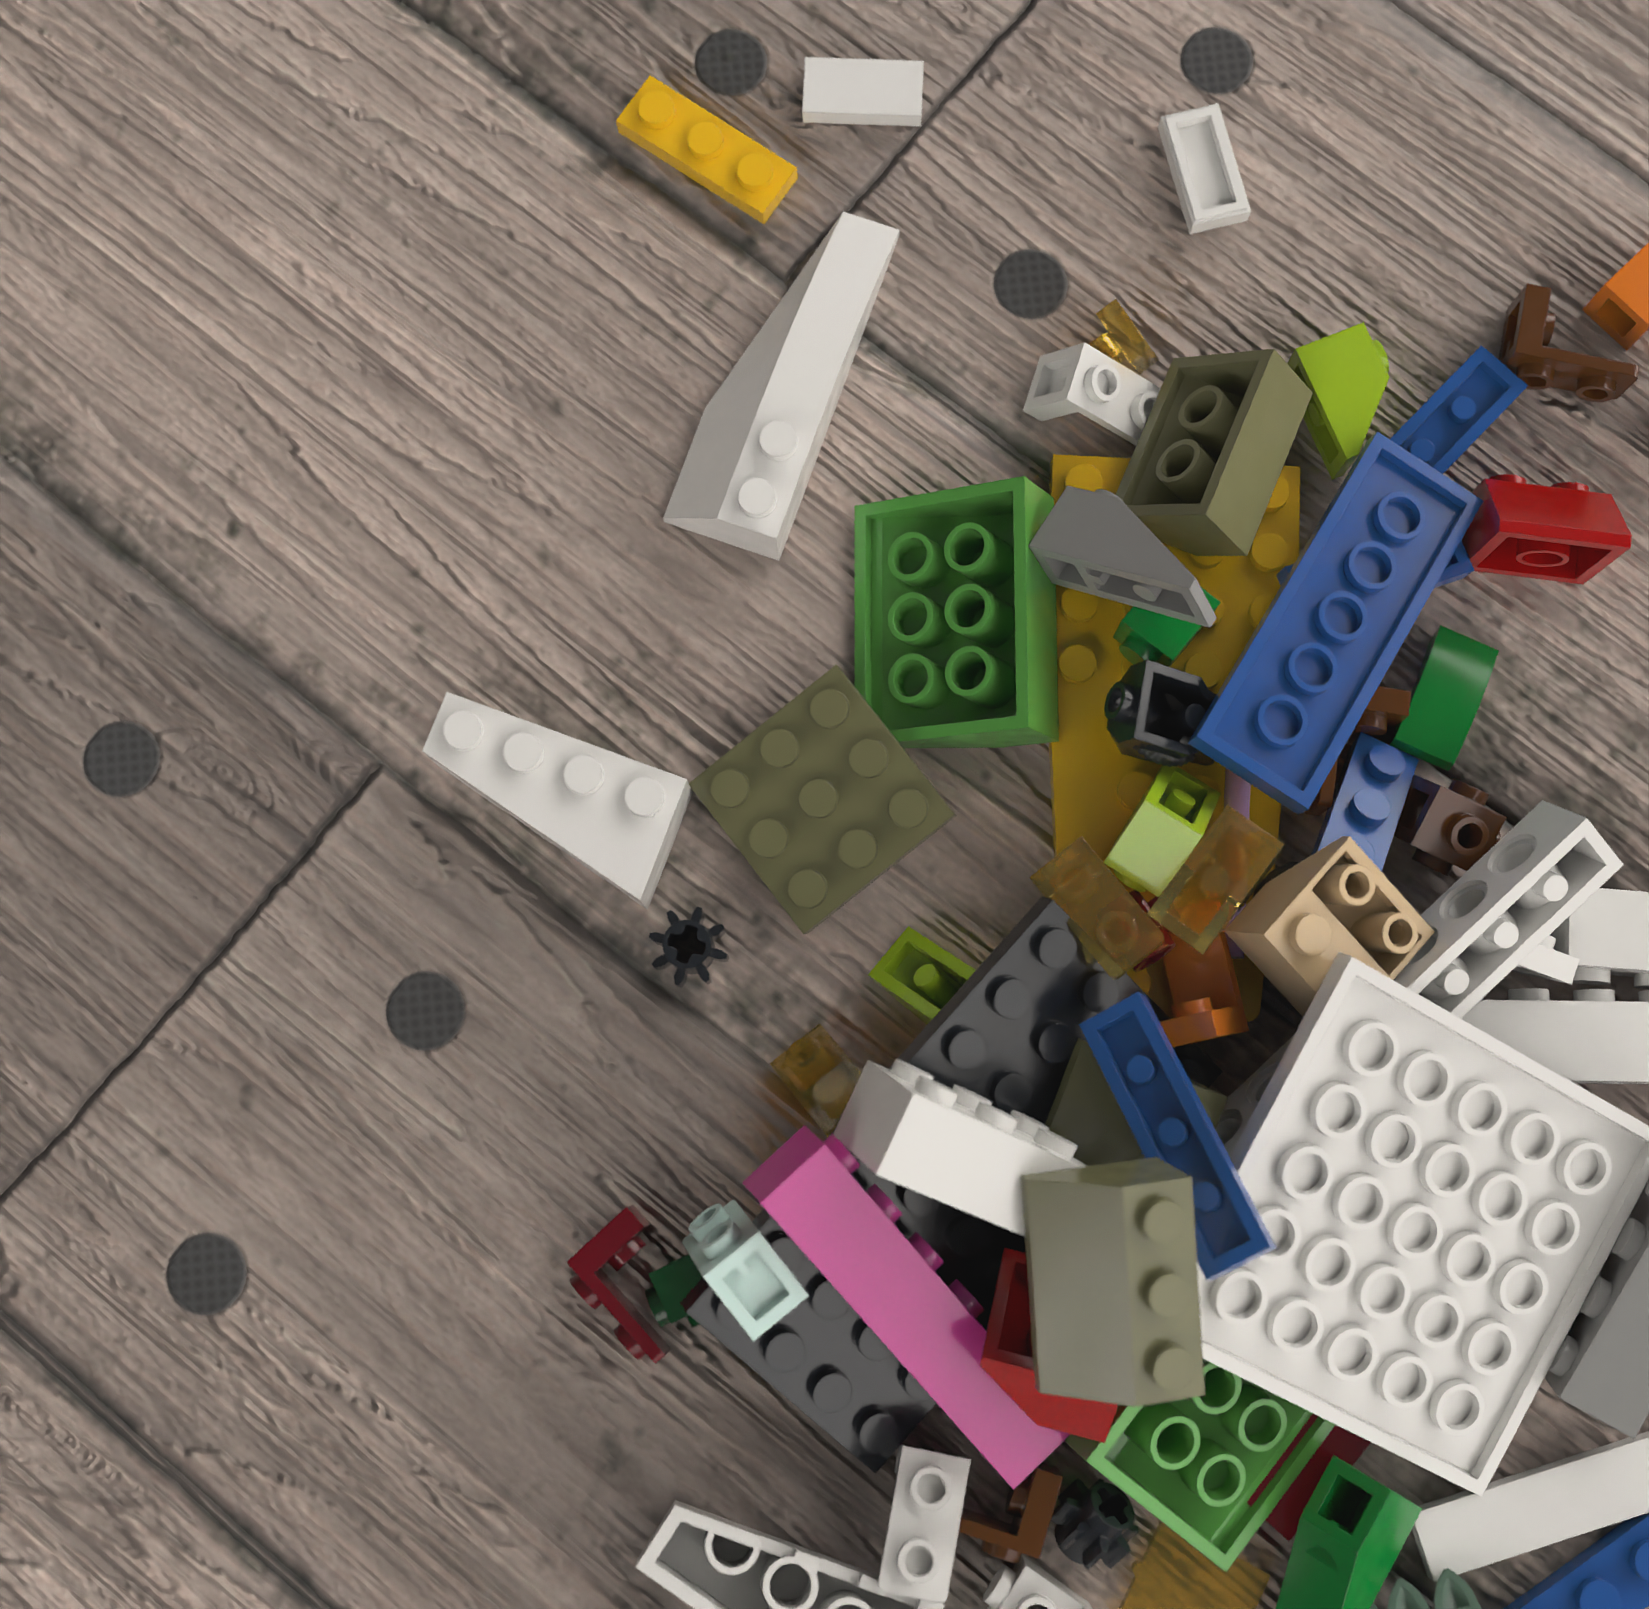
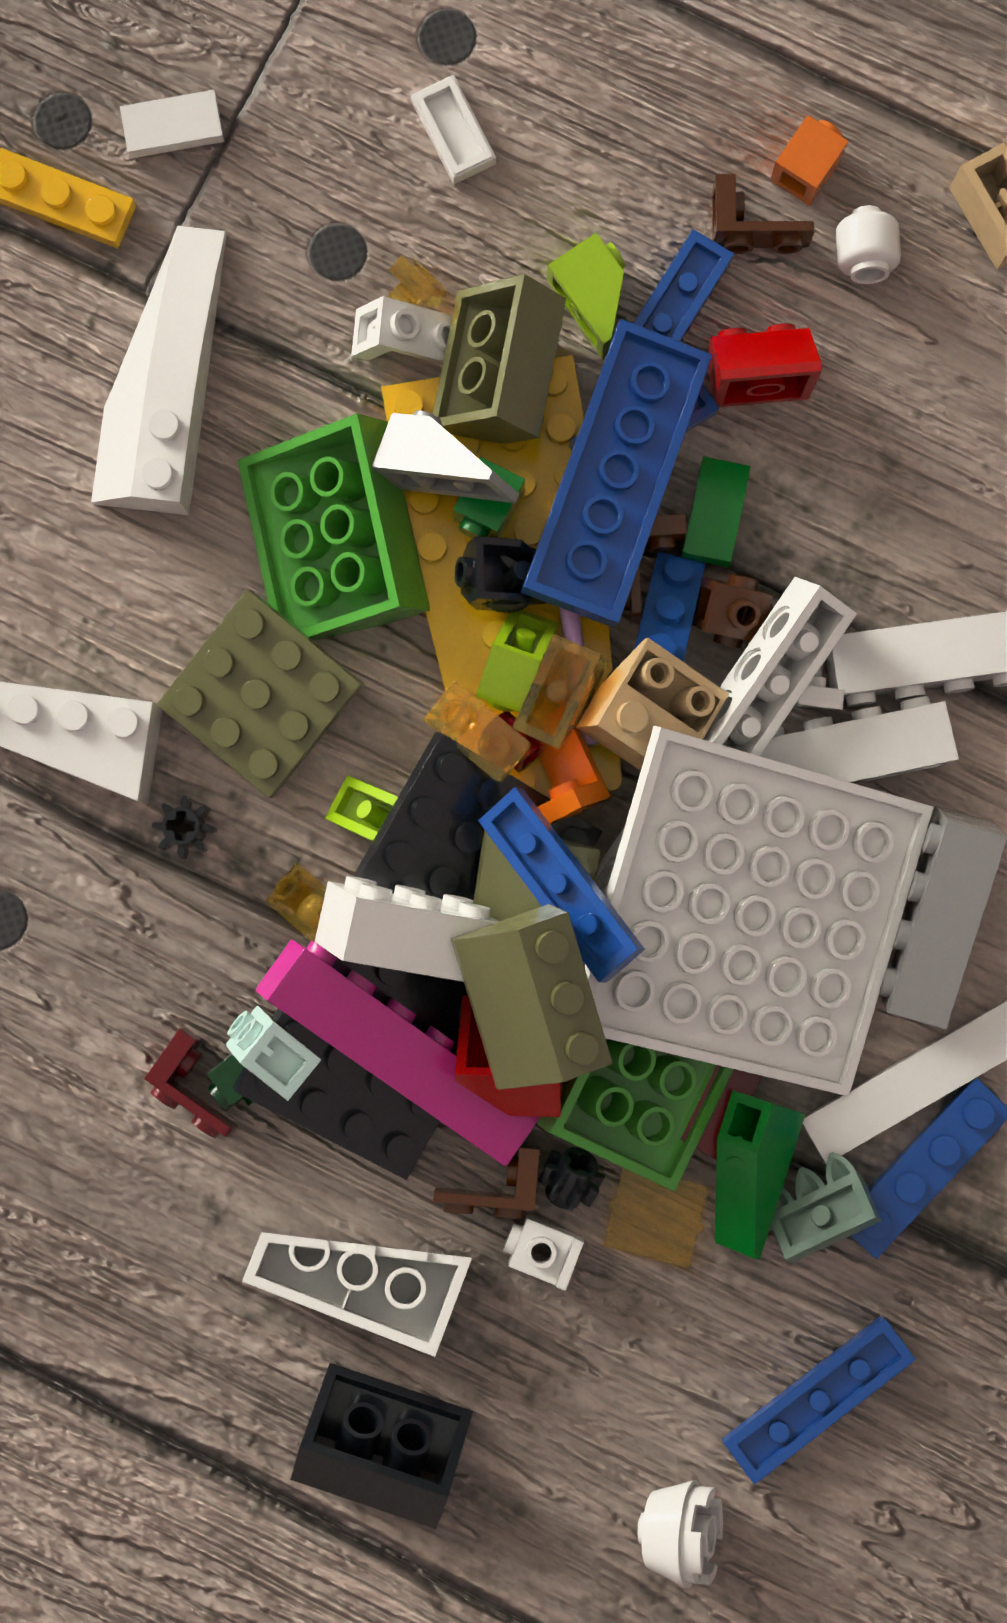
camera: 10 degrees left, 5 degrees up
(923, 1524) = (444, 1204): white bracket -> none

